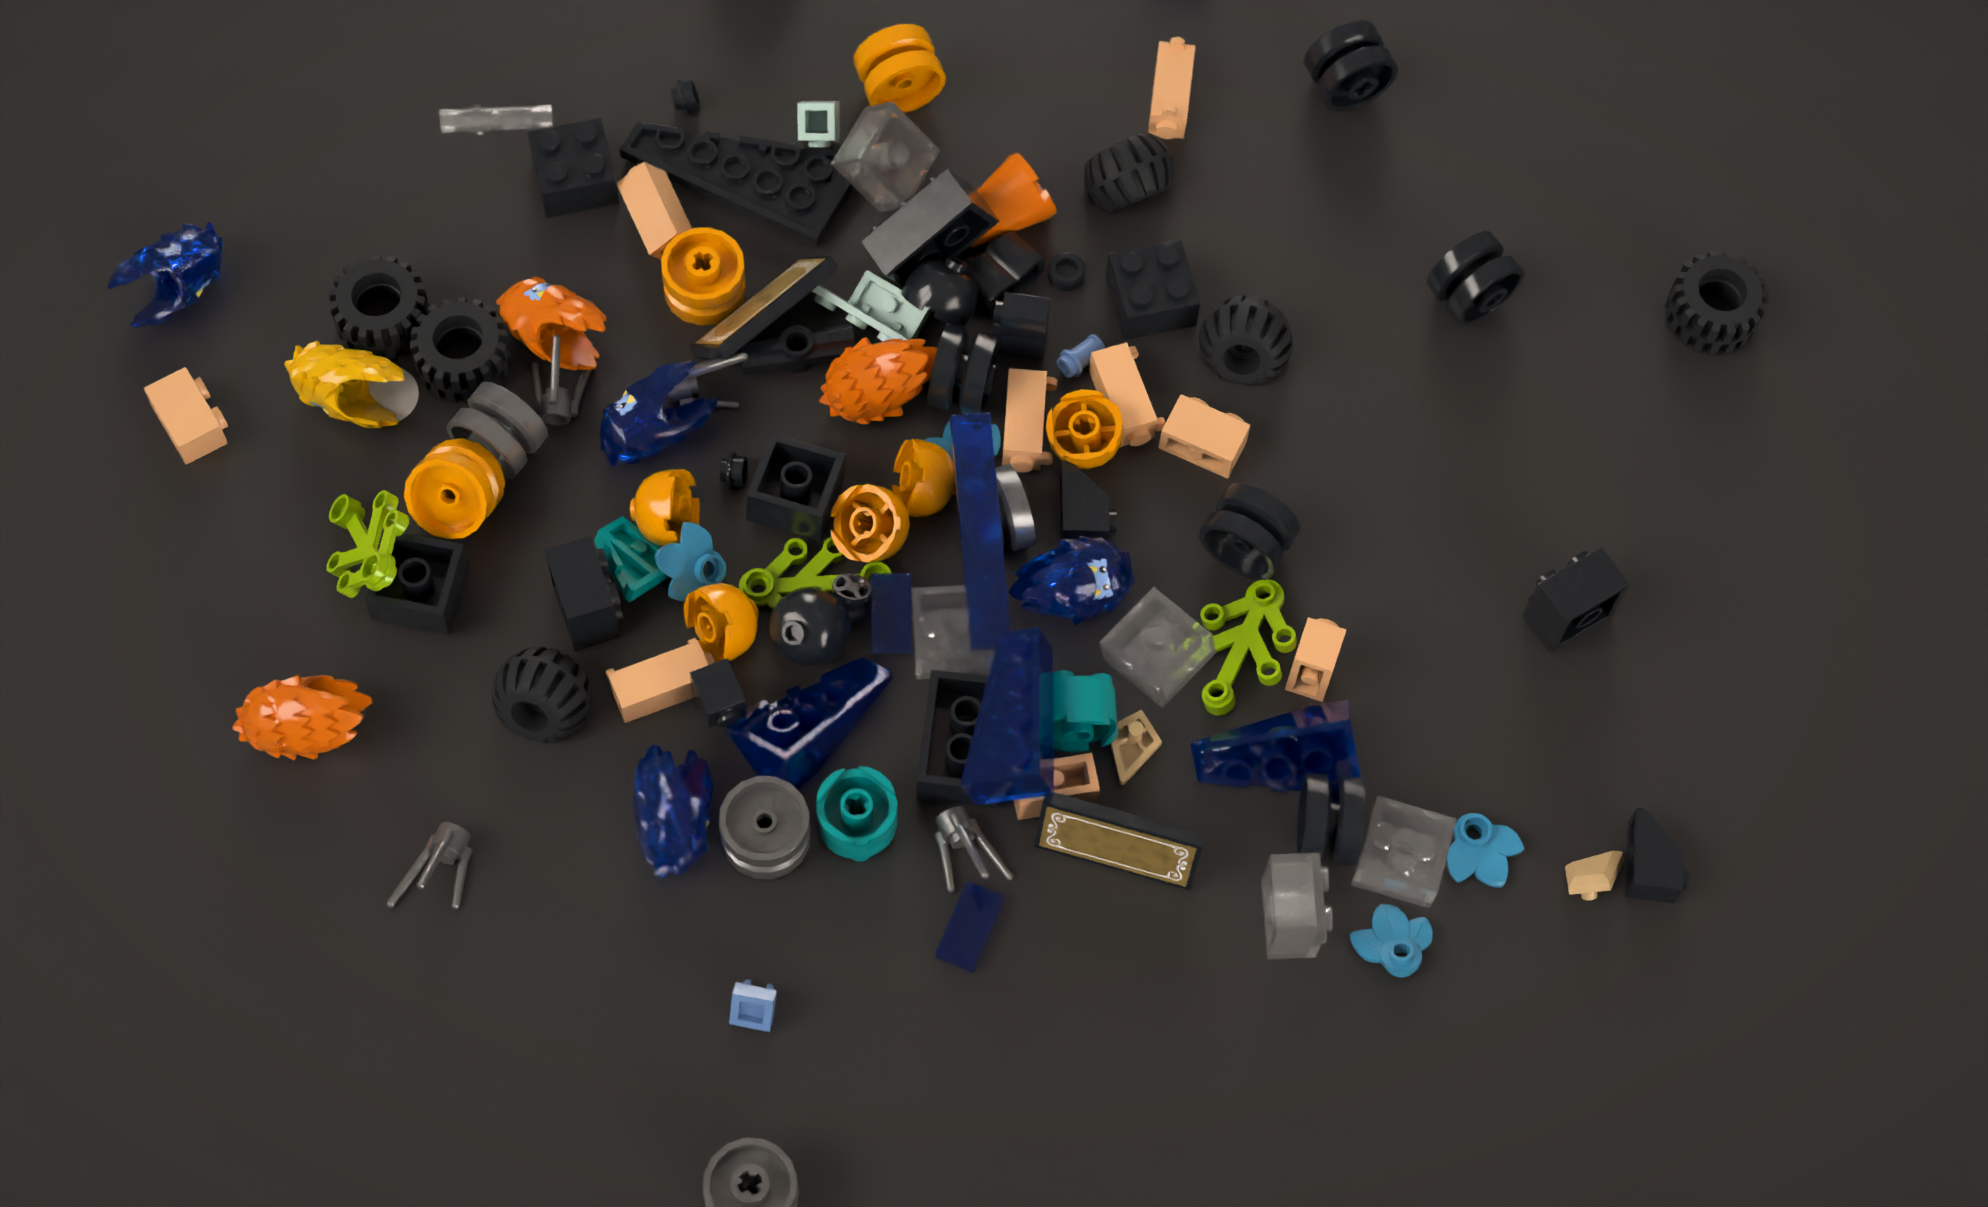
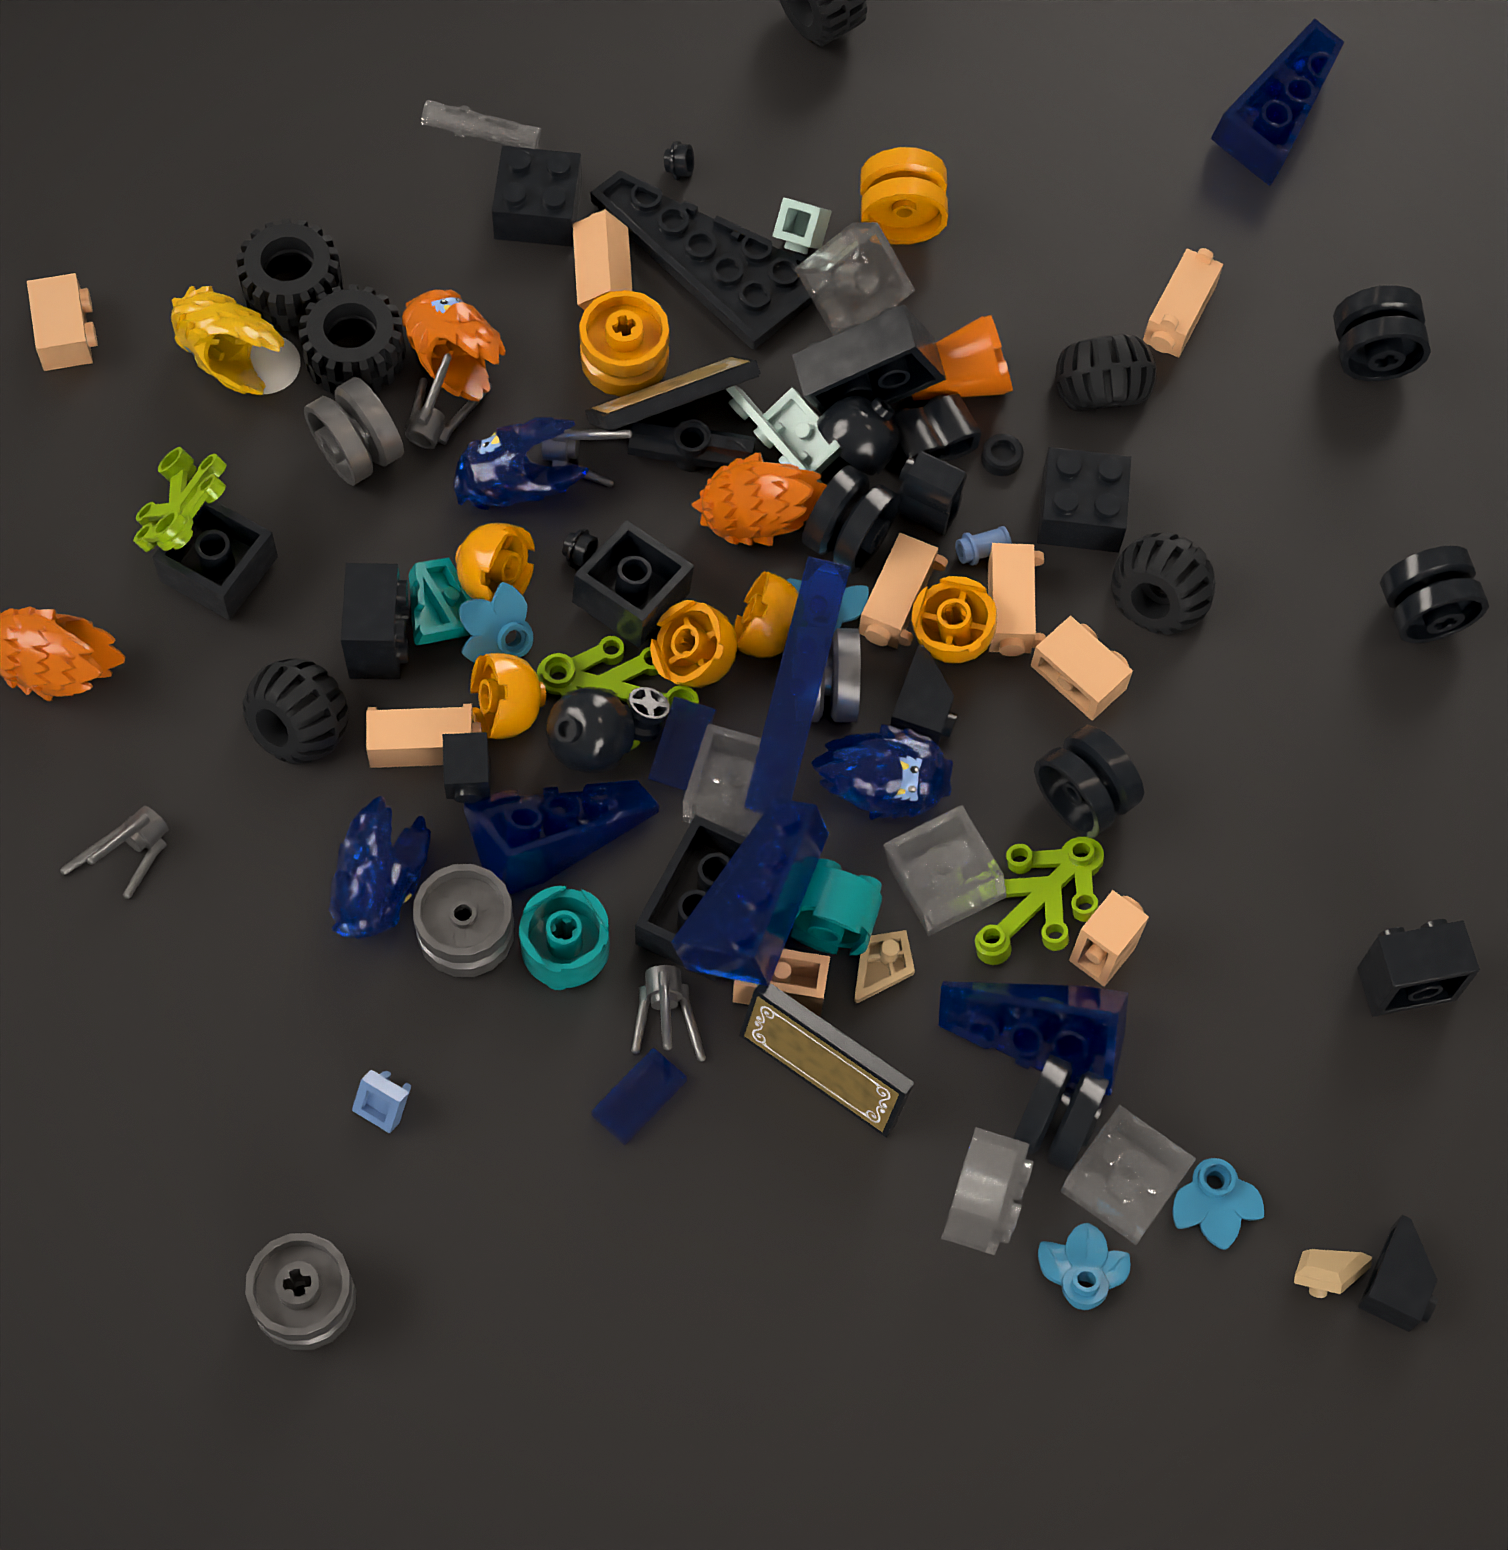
camera: 20 degrees right, 0 degrees up
(180, 267) = (114, 172): clear blue head -> none
(454, 488) = (286, 474): light orange wheel -> none

